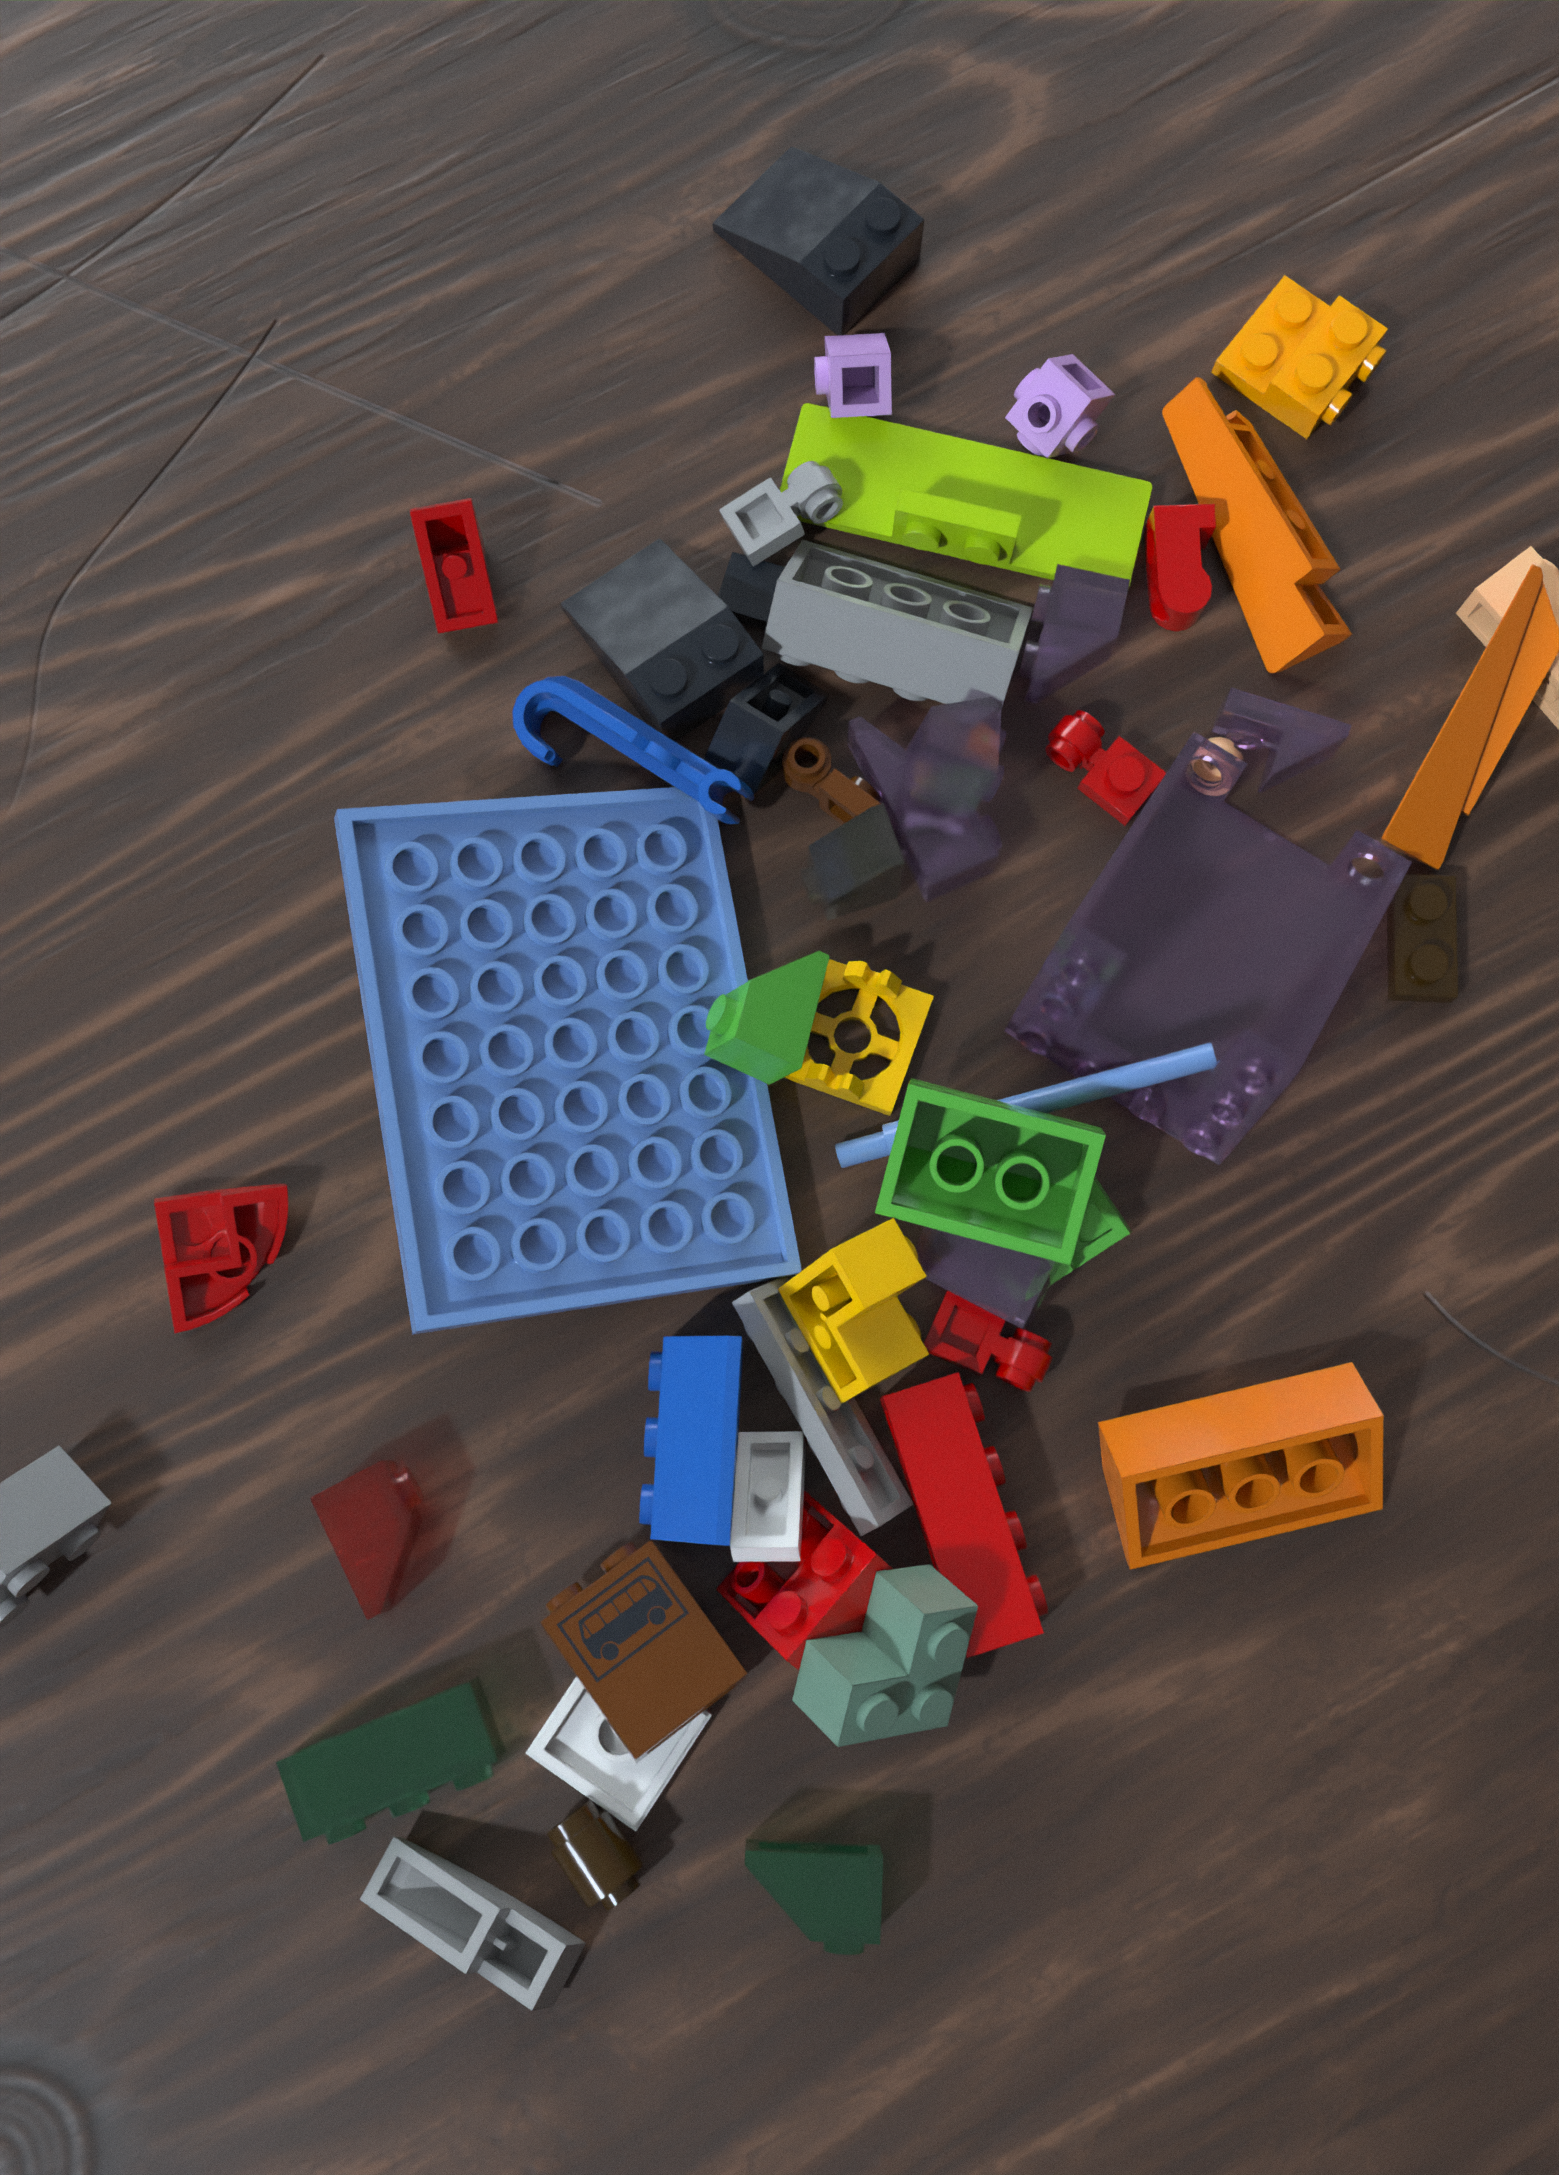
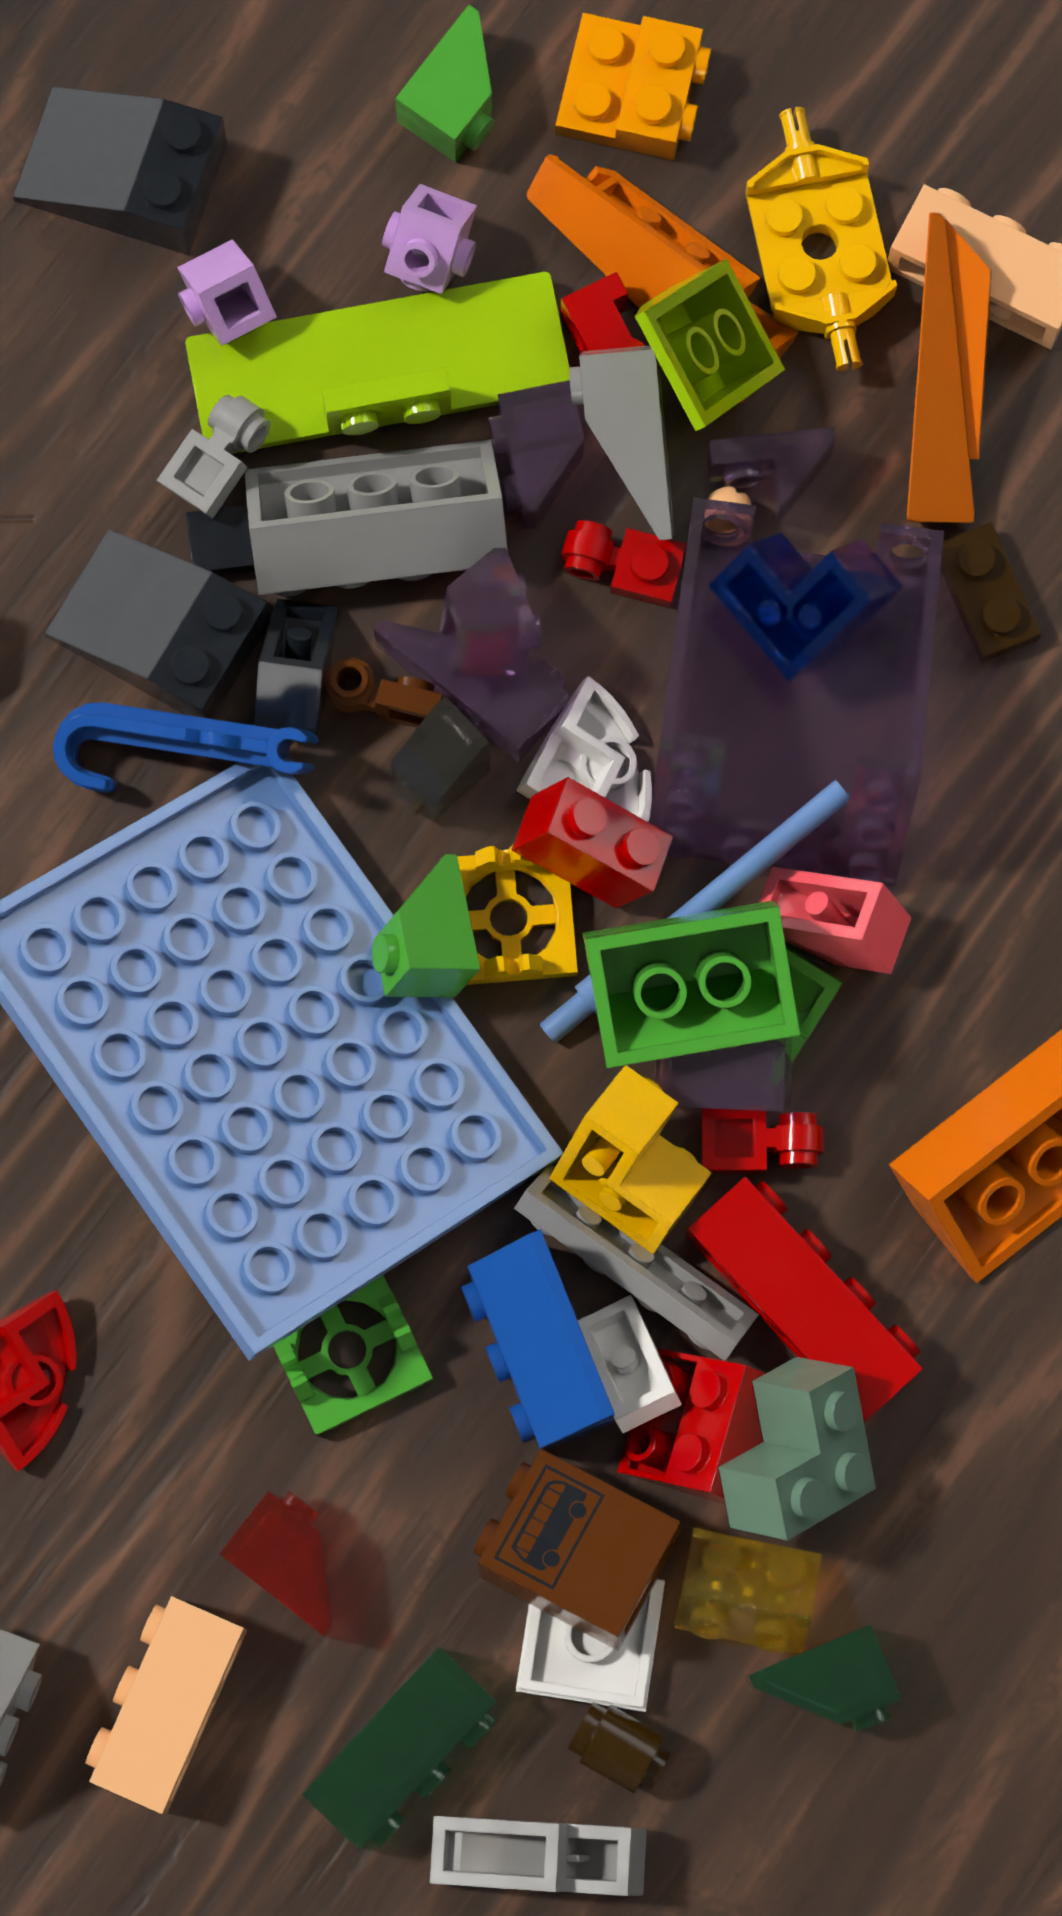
camera: 25 degrees left, 0 degrees up
(198, 1613) = (165, 1704): none -> light nougat brick
(568, 1407) = (406, 1375): none -> bright green piece
(783, 1763) = (748, 1591): none -> clear yellow bracket
(958, 1000) = (592, 843): none -> red brick
(988, 936) = (594, 749): none -> white brick
(1134, 290) = (451, 91): none -> bright green slope
(1155, 1172) = (839, 918): none -> coral slope
(1166, 631) = (627, 417): none -> light grey slope
(1247, 877) = (800, 611): none -> clear blue brick
(1273, 594) = (709, 343): none -> lime slope
(1420, 516) = (829, 194): none -> yellow plate

